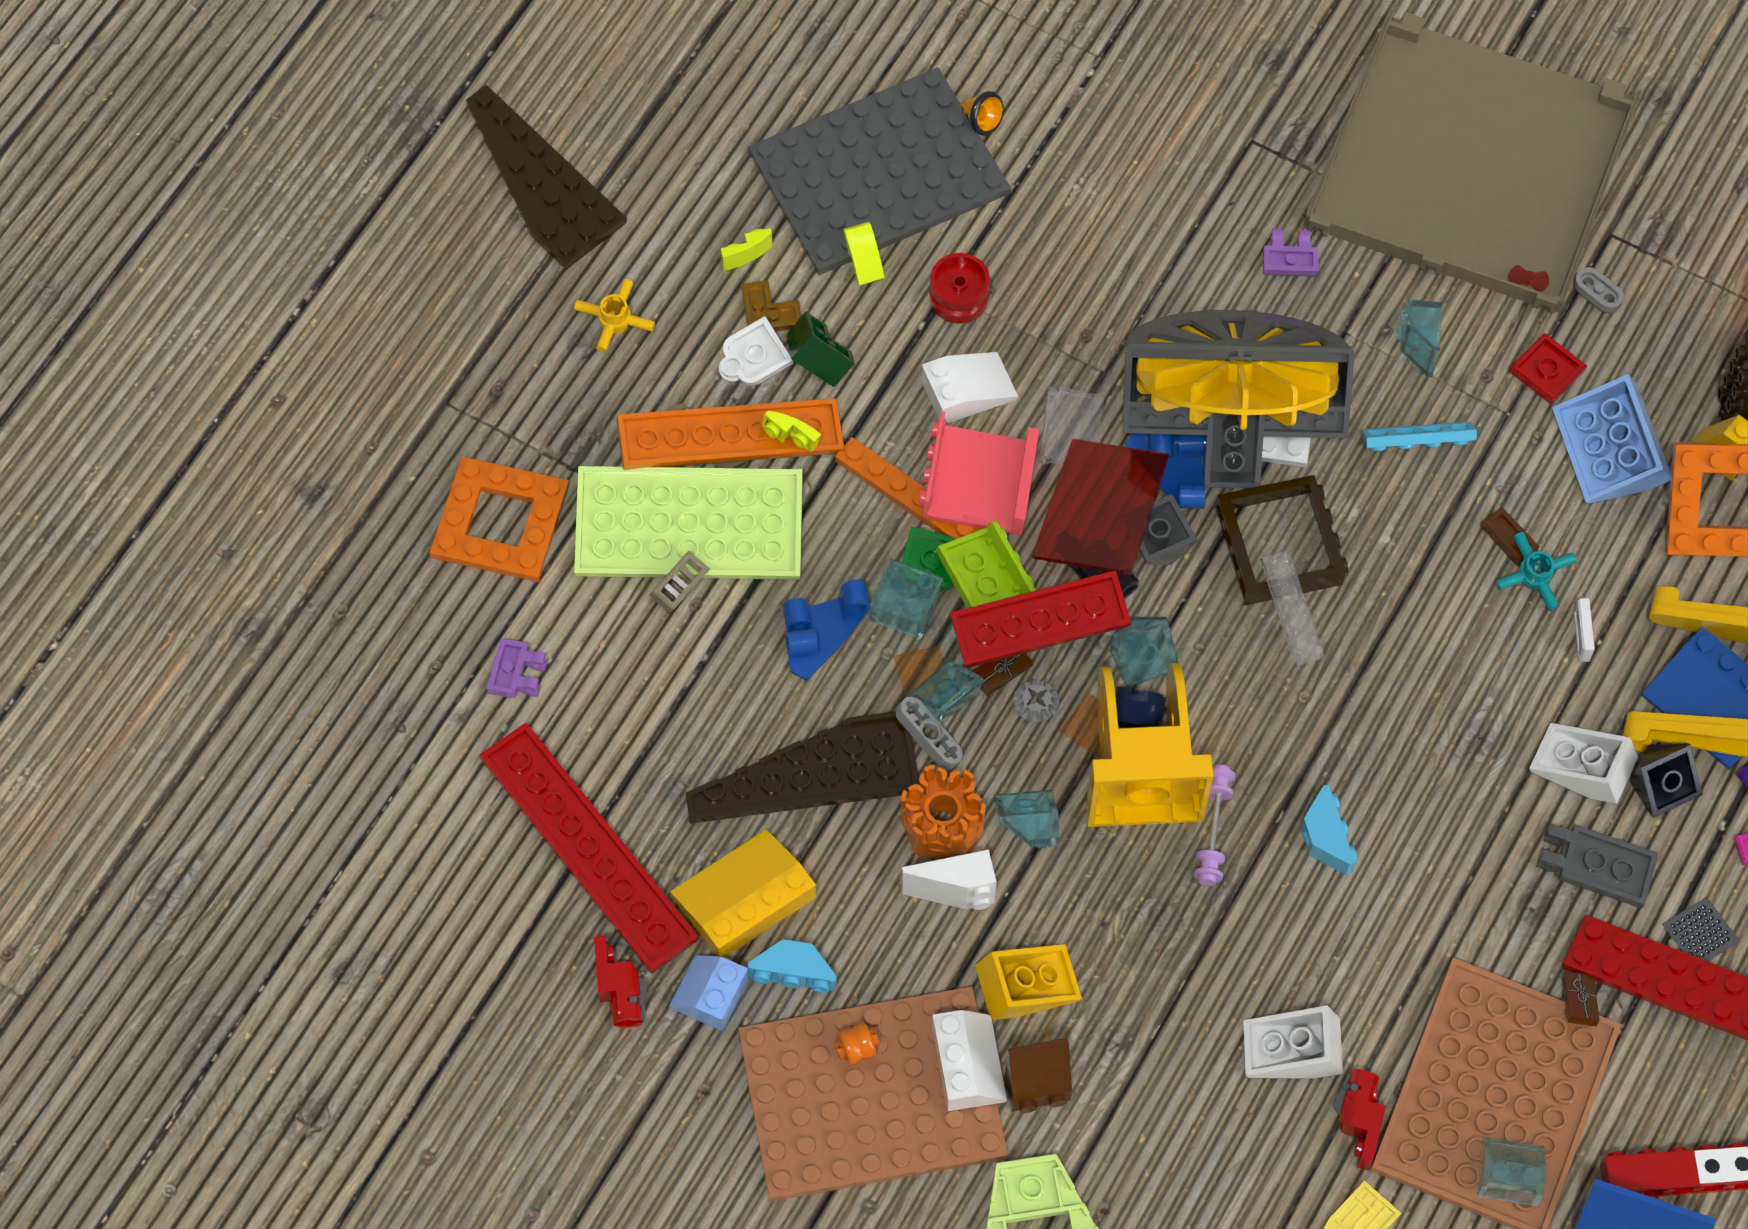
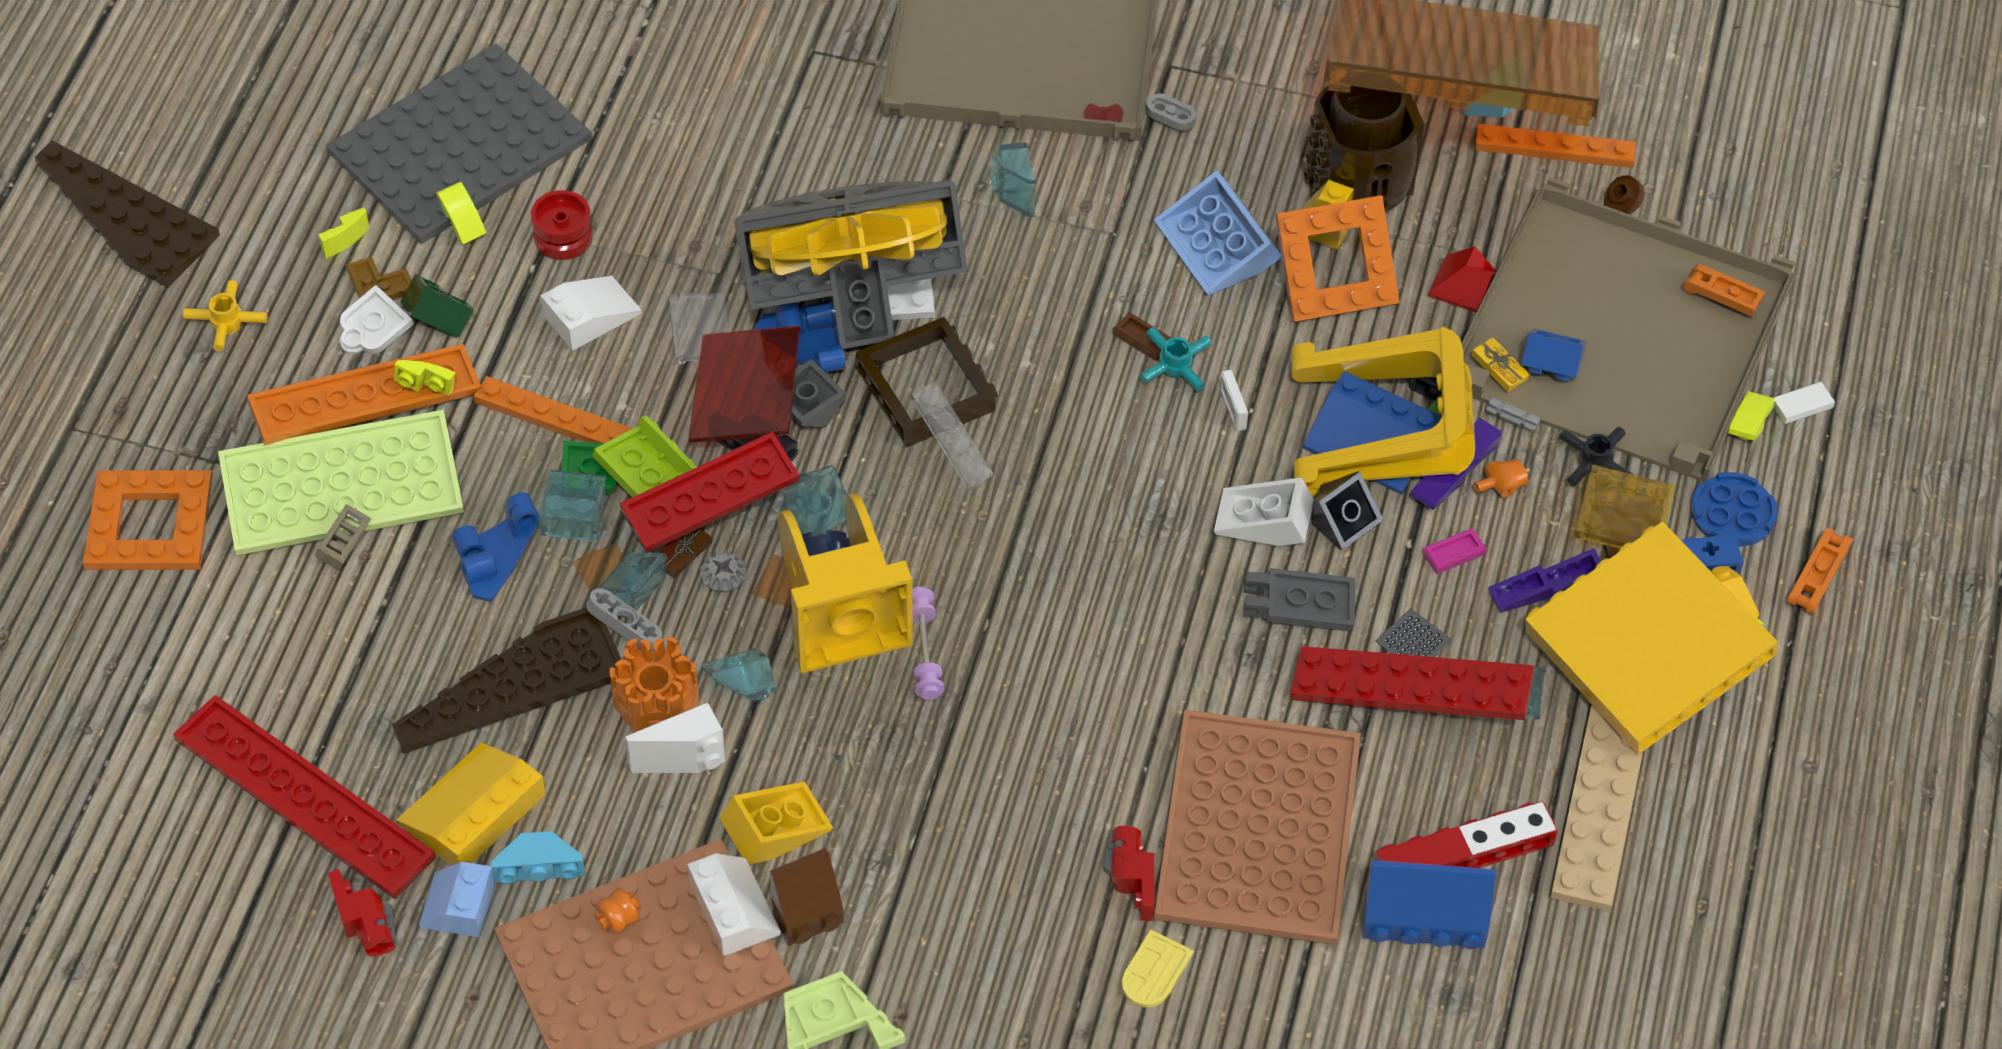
camera: 15 degrees left, 10 degrees down
(508, 668) = (186, 650): medium lavender plate -> none
(978, 477) = (619, 385): coral panel -> none
(984, 112) = (550, 71): light orange hat -> none
(1290, 260) = (874, 142): medium lavender plate -> none
(1294, 1044) = (1051, 821): white slope -> none
(1327, 833) = (1036, 628): medium azure slope -> none
(1429, 435) = (1044, 264): medium azure plate -> none
(1512, 1171) = (1291, 886): clear light blue slope -> none
(1547, 368) = (1141, 188): red tile -> none
(1580, 999) = (1315, 718): reddish brown tile -> none

